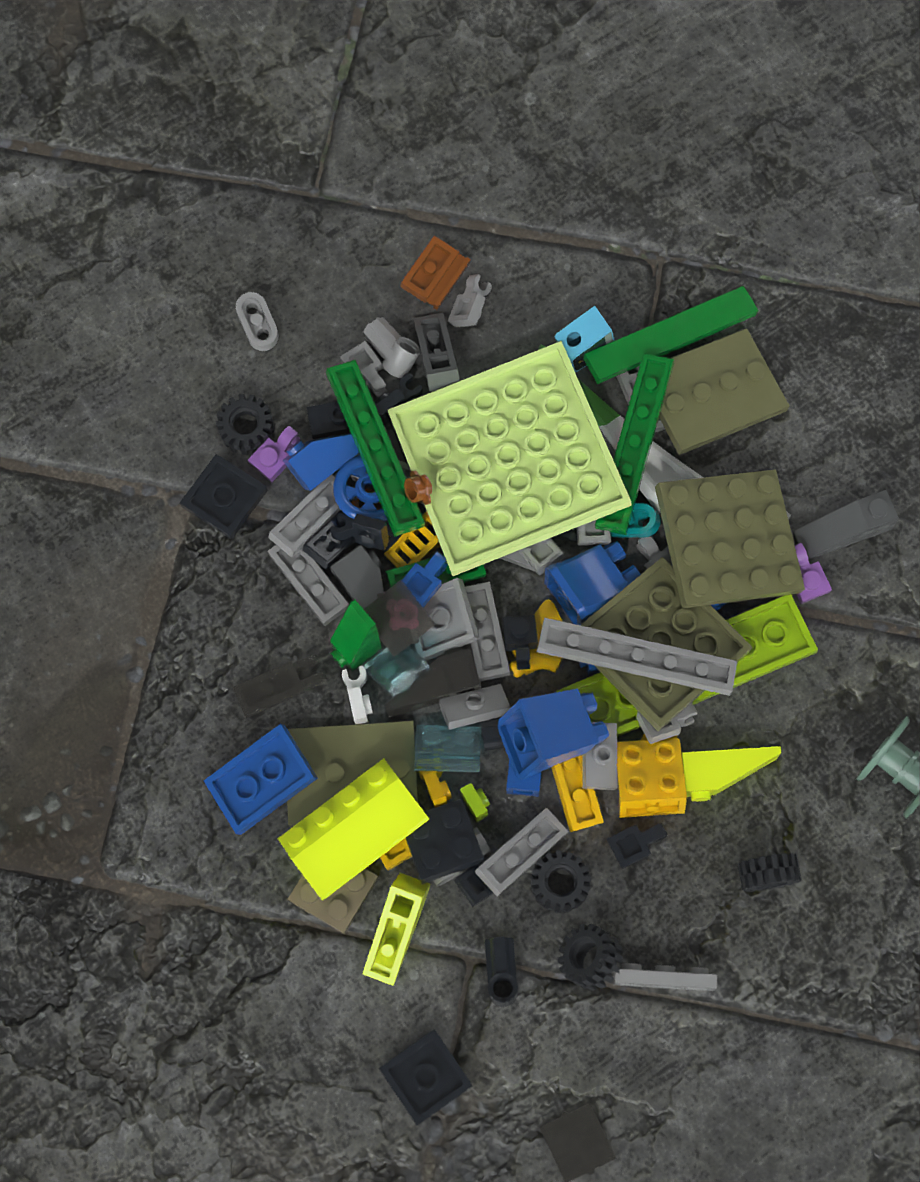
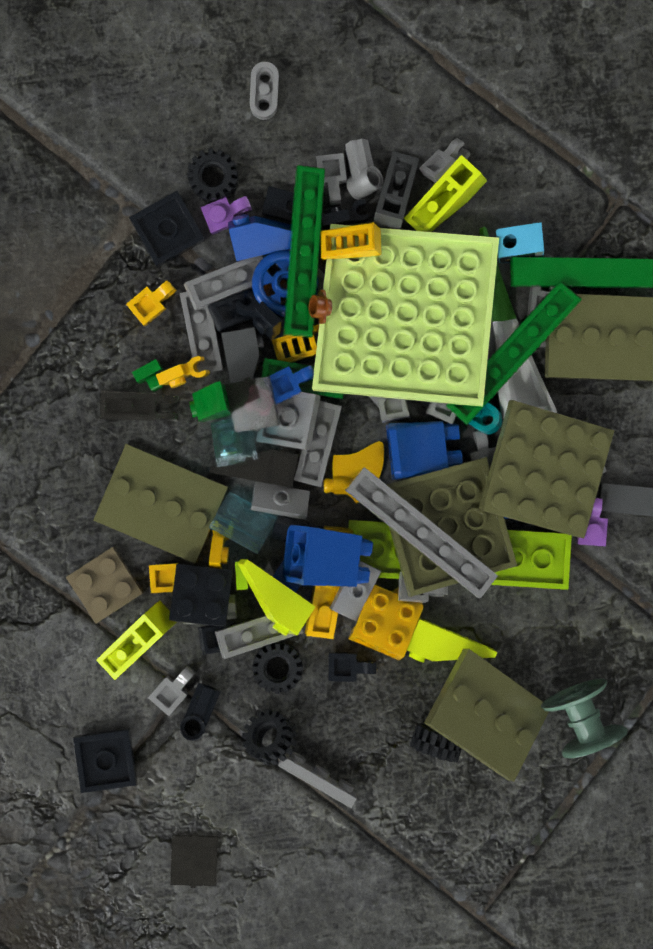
camera: 25 degrees right, 15 degrees up
(240, 578) = (148, 304): none -> yellow plate
(260, 779) = (87, 476): blue plate -> none
(276, 645) = (148, 374): none -> green tile
(304, 632) = (177, 375): none -> yellow plate
(353, 829) = (137, 554): neon yellow slope -> none
(359, 704) = (192, 453): white plate -> none
(411, 406) = (363, 250): none -> yellow slope
(435, 272) = (429, 121): dark orange plate -> none
(459, 967) = (171, 692): none -> light grey plate
(489, 329) = (446, 196): none -> neon yellow slope
(520, 636) = (342, 463): black plate -> none
(524, 804) = (278, 602): none -> neon yellow slope
(806, 814) = (487, 715): none -> olive plate

